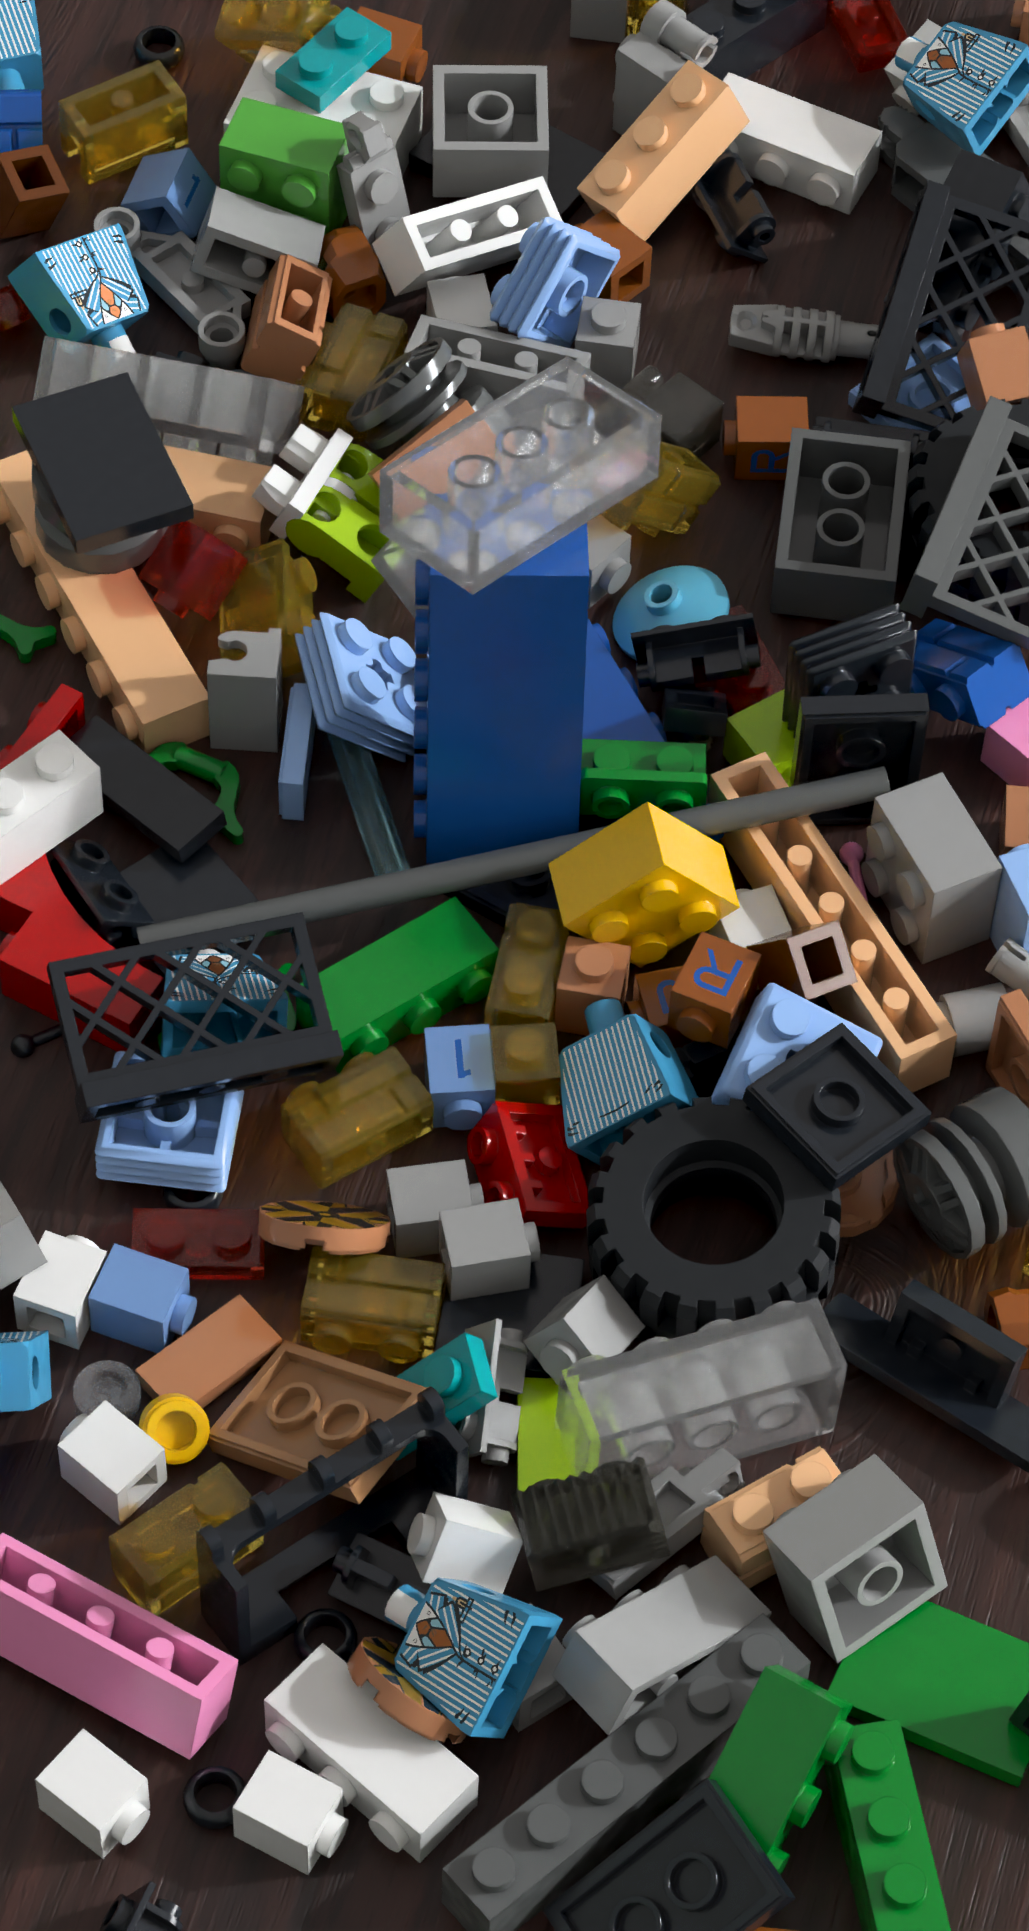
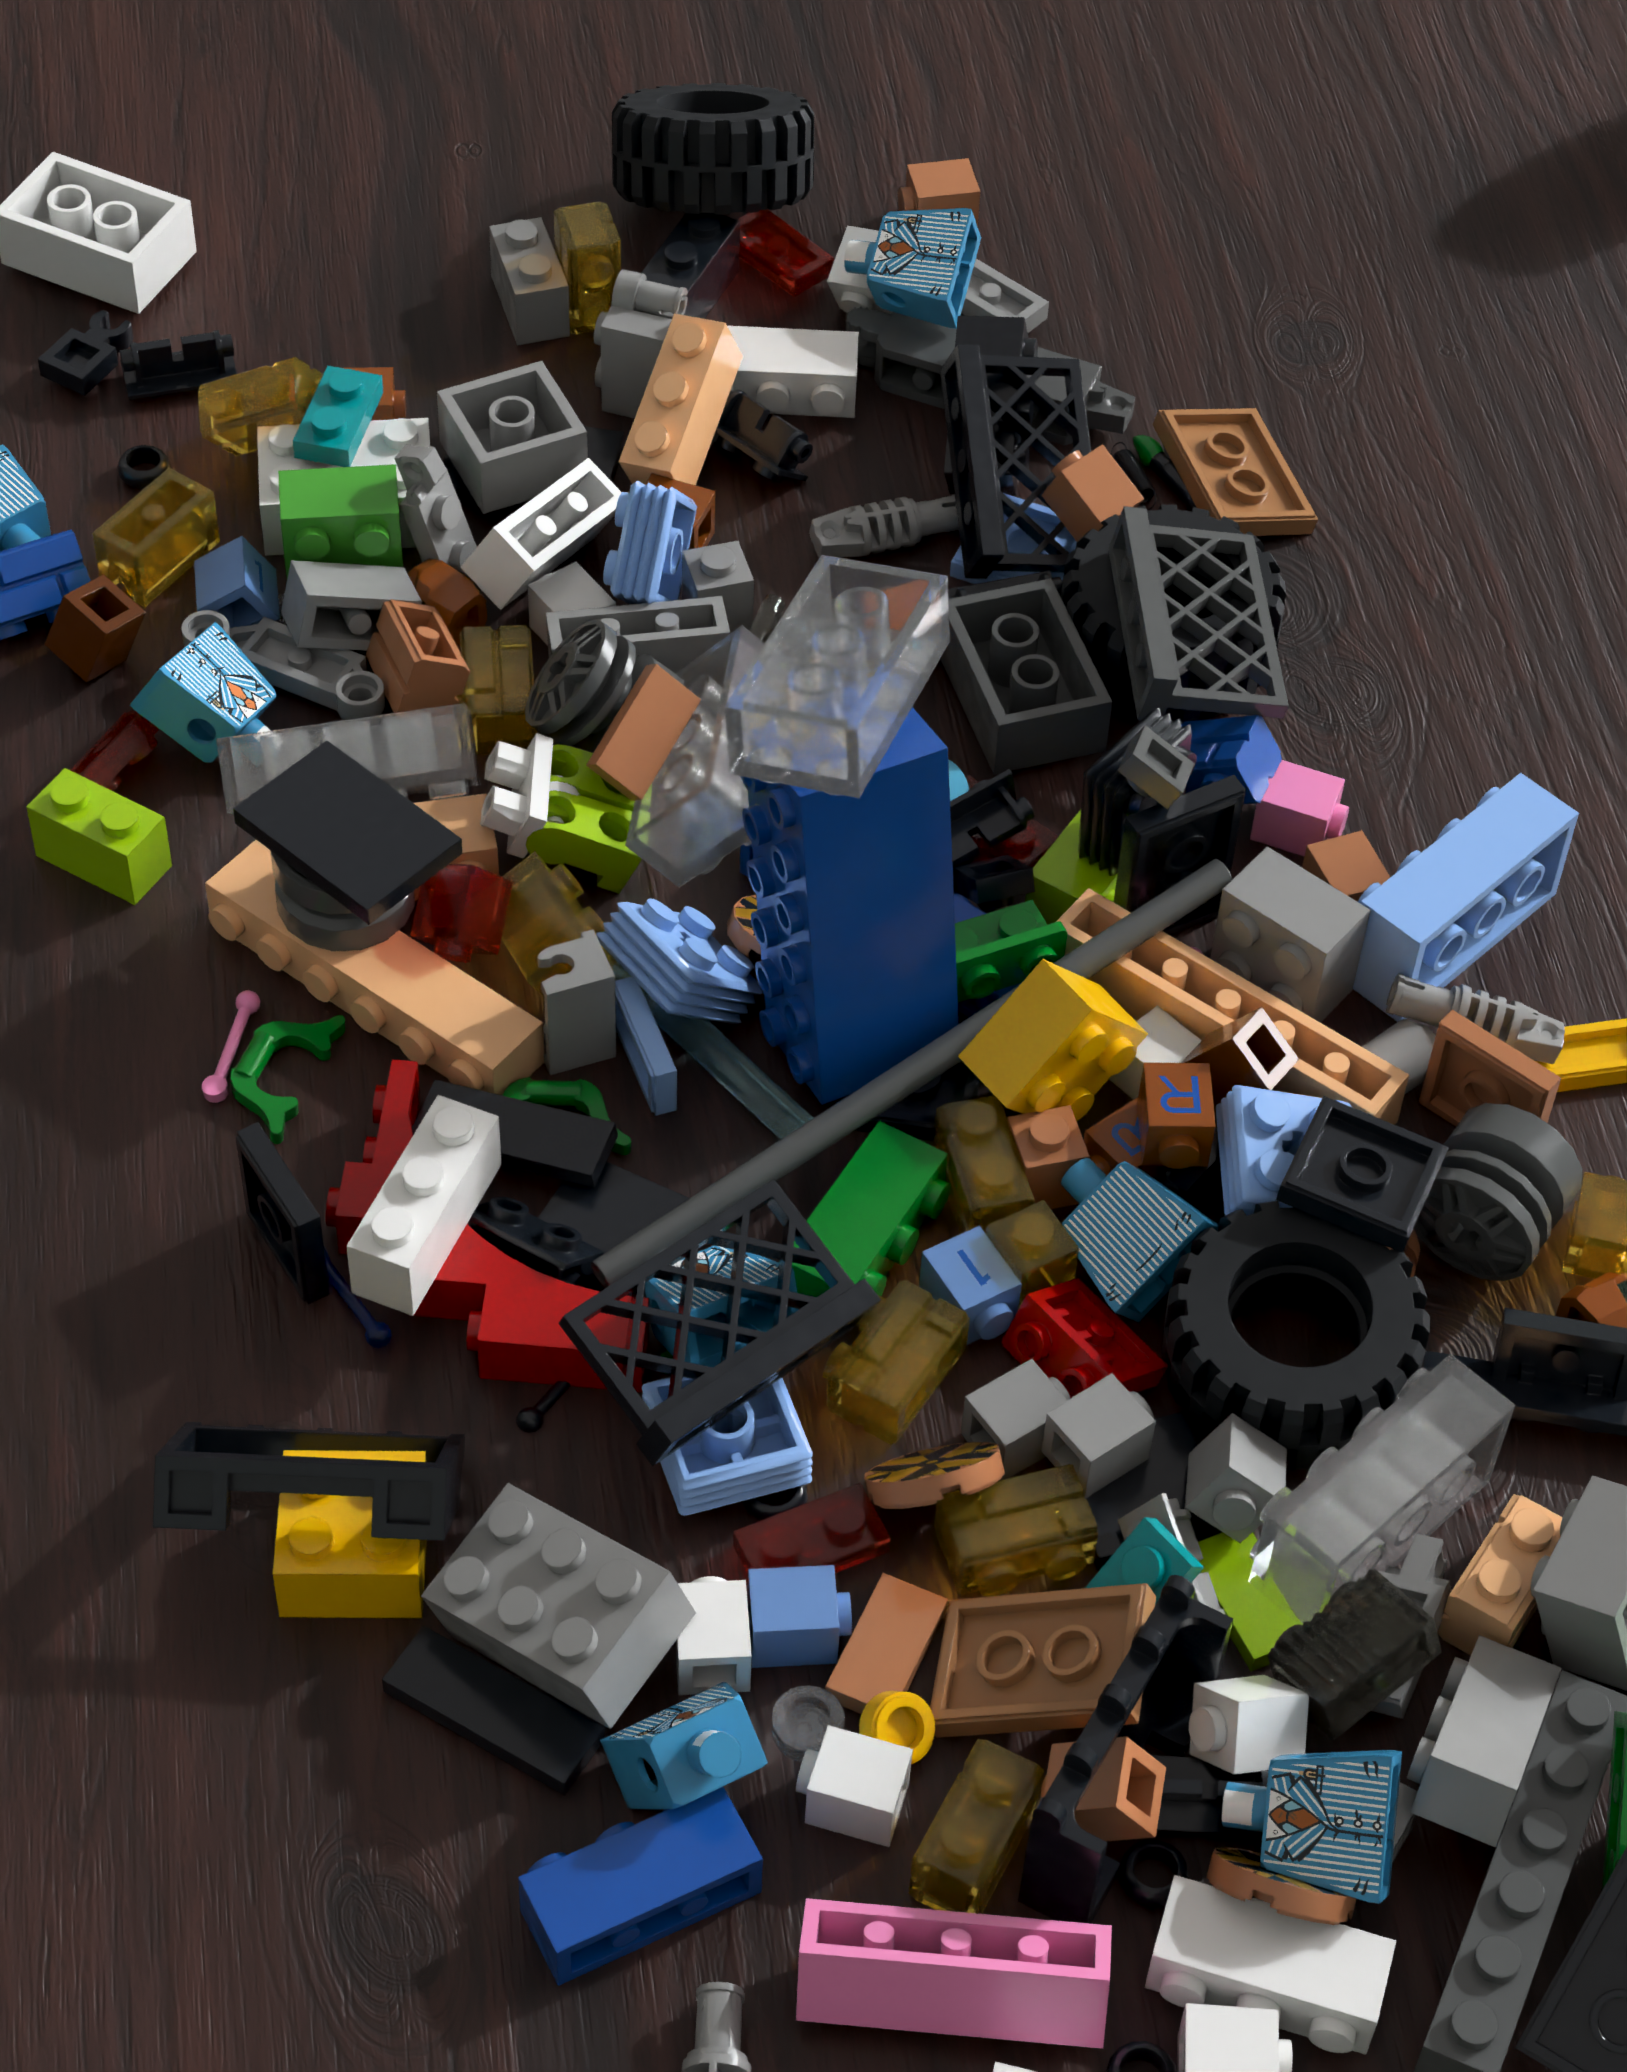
camera: 25 degrees left, 5 degrees down
(305, 1554) = (1123, 1795): none -> nougat brick
(848, 659) = (1155, 767): none -> dark grey plate

